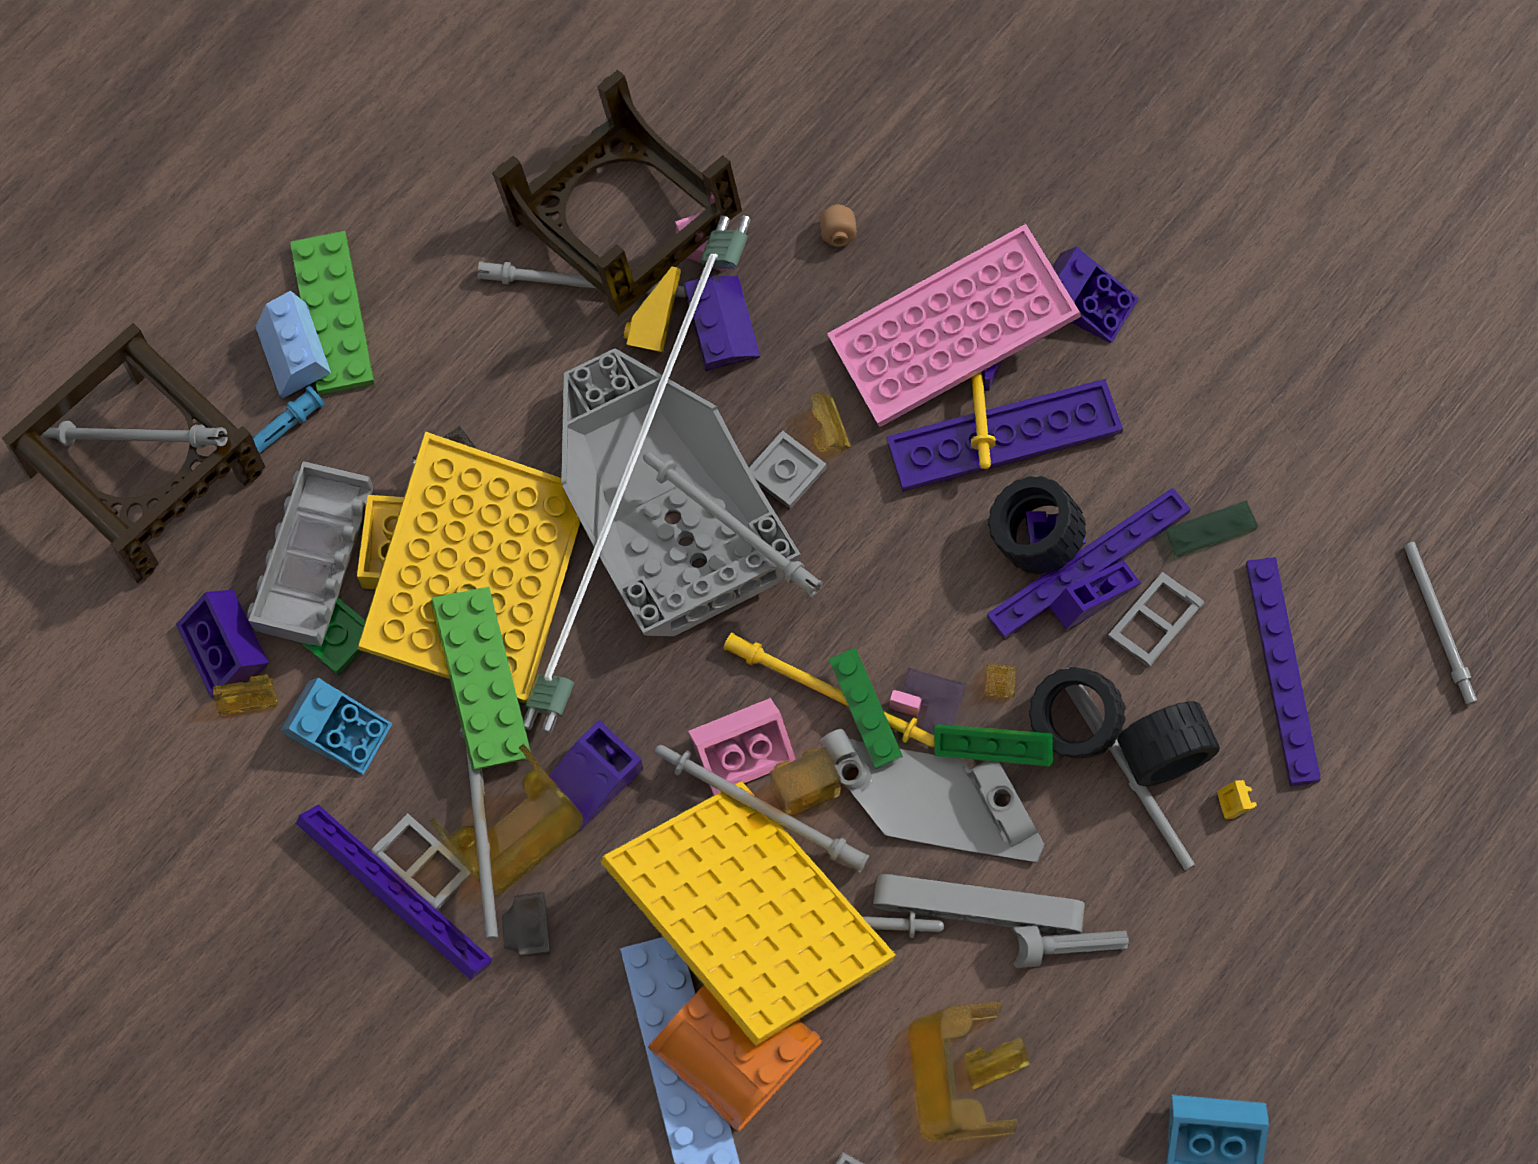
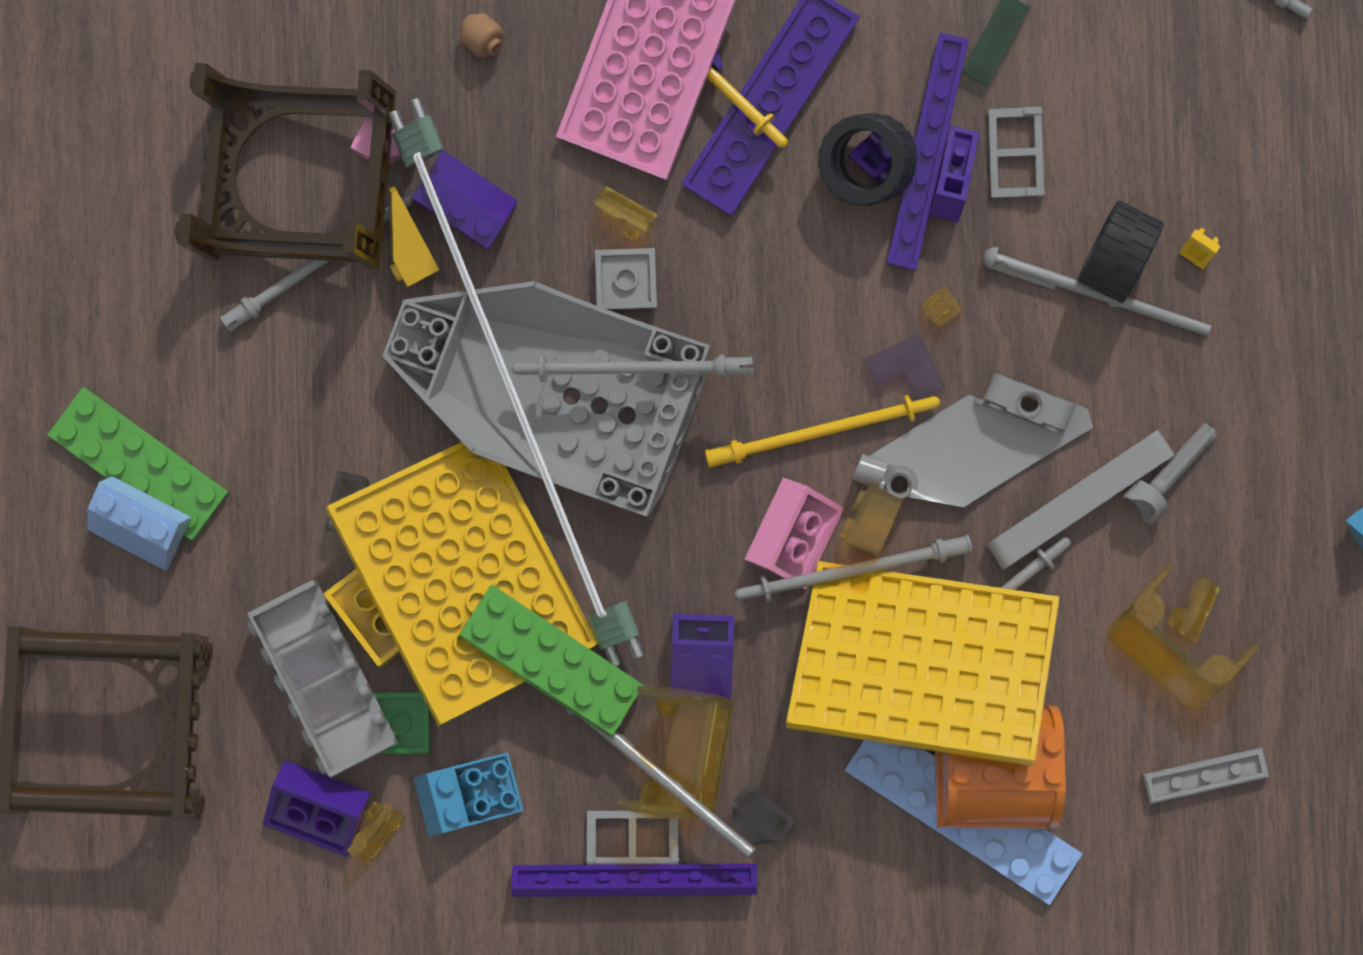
camera: 40 degrees left, 15 degrees up
(198, 435) = (155, 673): light grey bar -> none
(295, 413) = (191, 574): dark azure pin -> none
(865, 708) = (863, 421): green plate -> none
(905, 703) = (887, 390): bright pink tile -> none
(993, 744) = (989, 368): green plate -> none
(1114, 708) = (1037, 321): black tyre -> none
(1283, 672) = (1146, 110): dark purple plate -> none

